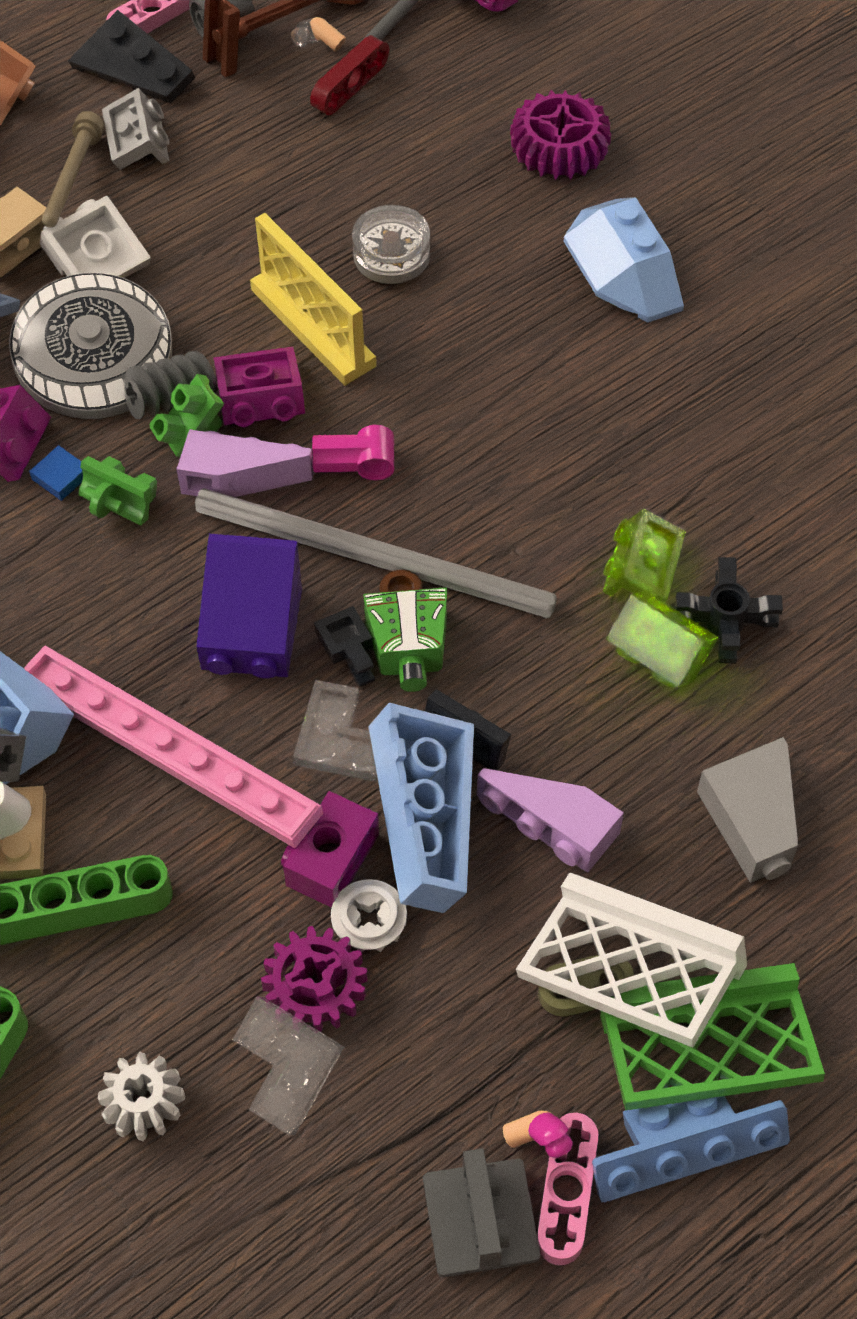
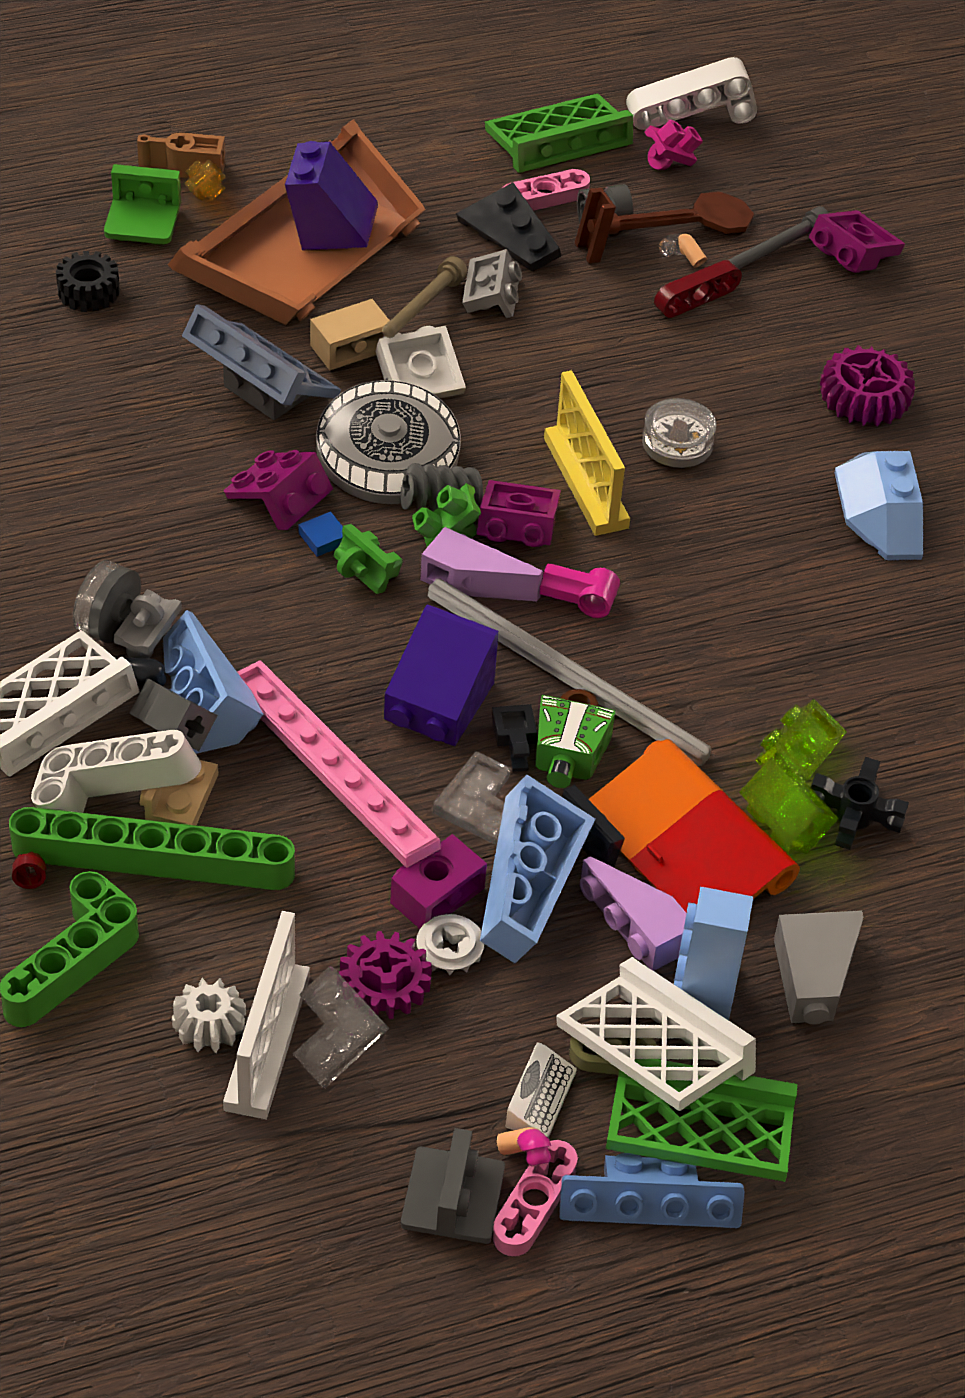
camera: 15 degrees right, 10 degrees down
(212, 1092) = (268, 1027): none -> white fence
(528, 1061) = (540, 1091): none -> slope
(573, 706) = (689, 831): none -> door
(665, 849) = (713, 947): none -> light blue wedge

